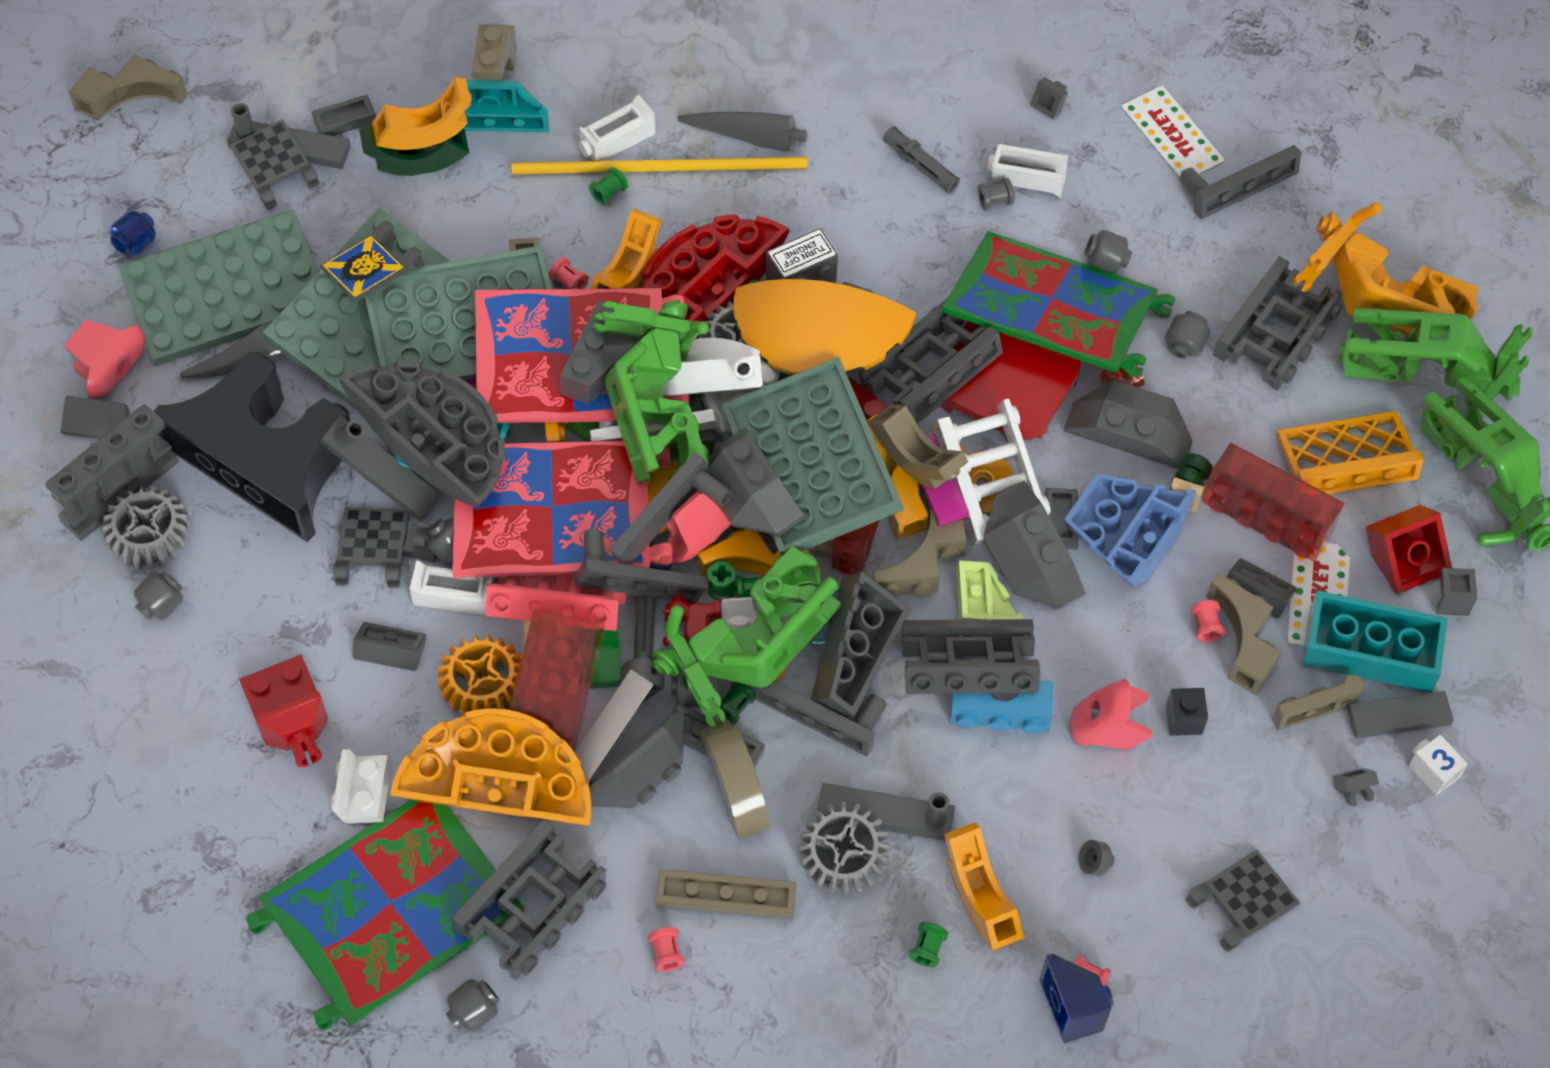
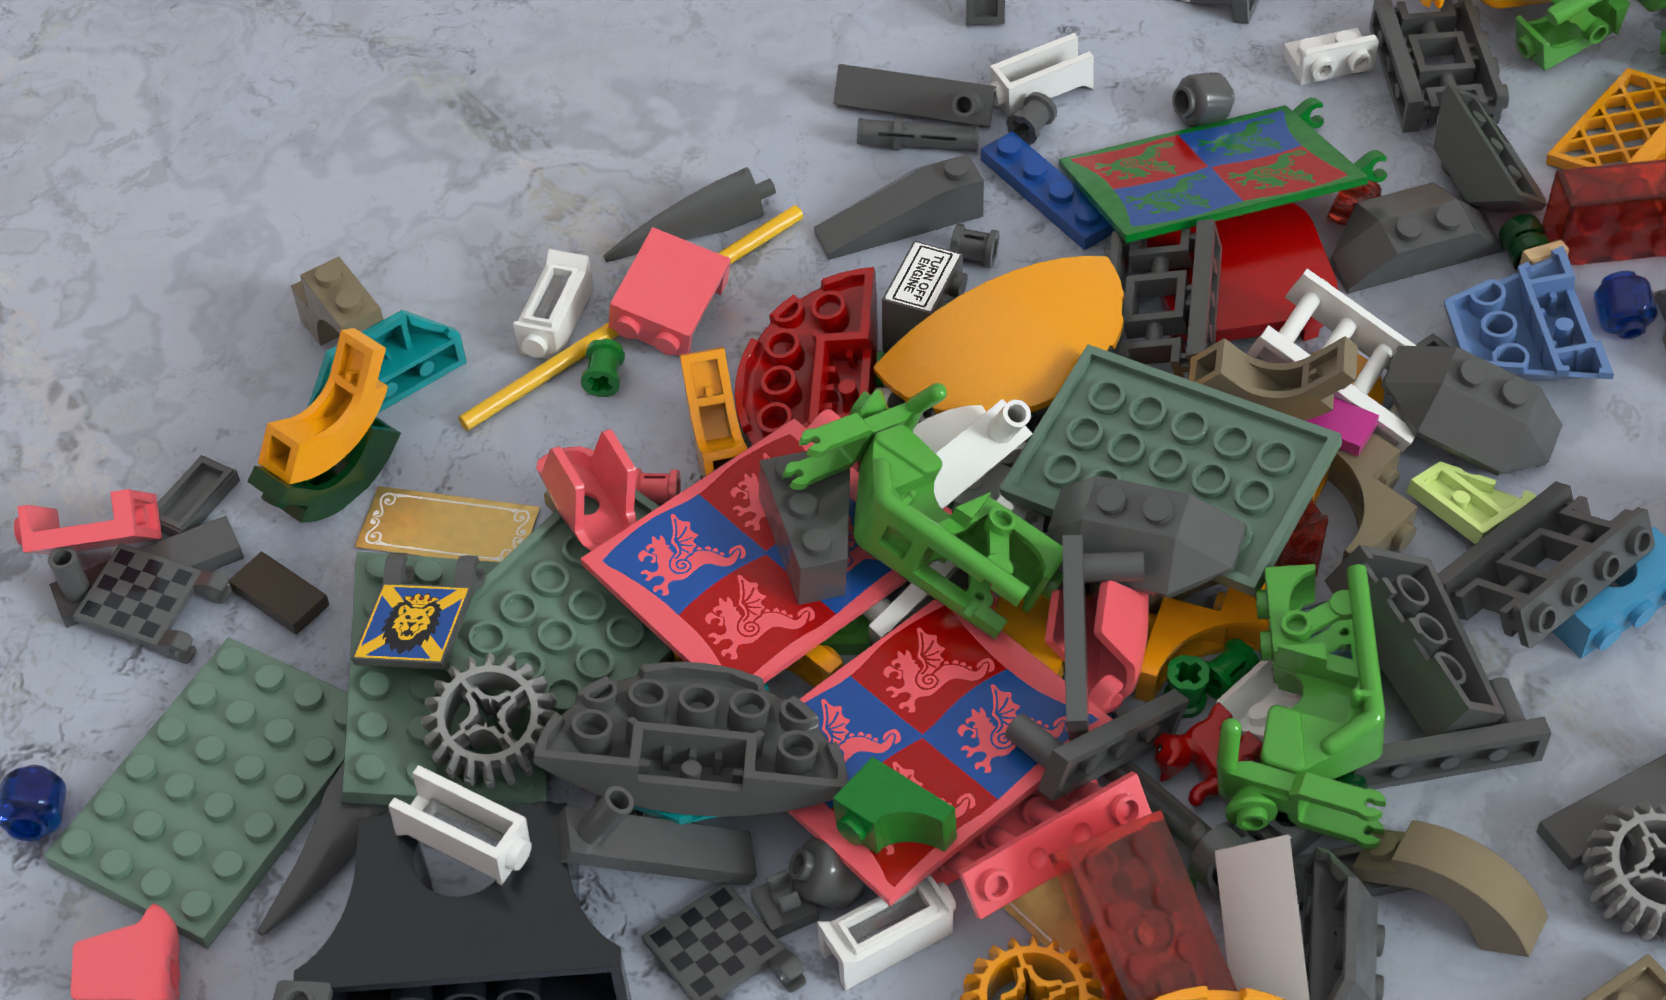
camera: 35 degrees left, 10 degrees down
(285, 391) = (463, 825): none -> white window
(291, 108) = (134, 522): none -> coral panel
(339, 201) = (279, 592): none -> dark brown tile
(352, 321) = (473, 733): none -> light grey gear
(452, 221) = (444, 525): none -> pearl gold sticker
(488, 529) = (888, 808): none -> green arch
(514, 238) = (600, 474): none -> coral piece
(677, 164) = (667, 292): none -> coral panel
(877, 203) = (907, 207): none -> dark grey wedge
(878, 252) = (975, 244): none -> dark grey bush
(957, 147) = (914, 95): none -> dark grey piece
(960, 236) = (1046, 189): none -> blue plate
(1187, 334) = (1367, 122): dark grey head -> none
(1204, 552) = (1625, 304): none -> clear blue head
(1222, 275) = (1331, 55): none -> white bracket
(1229, 404) = (1481, 157): none -> dark grey wedge

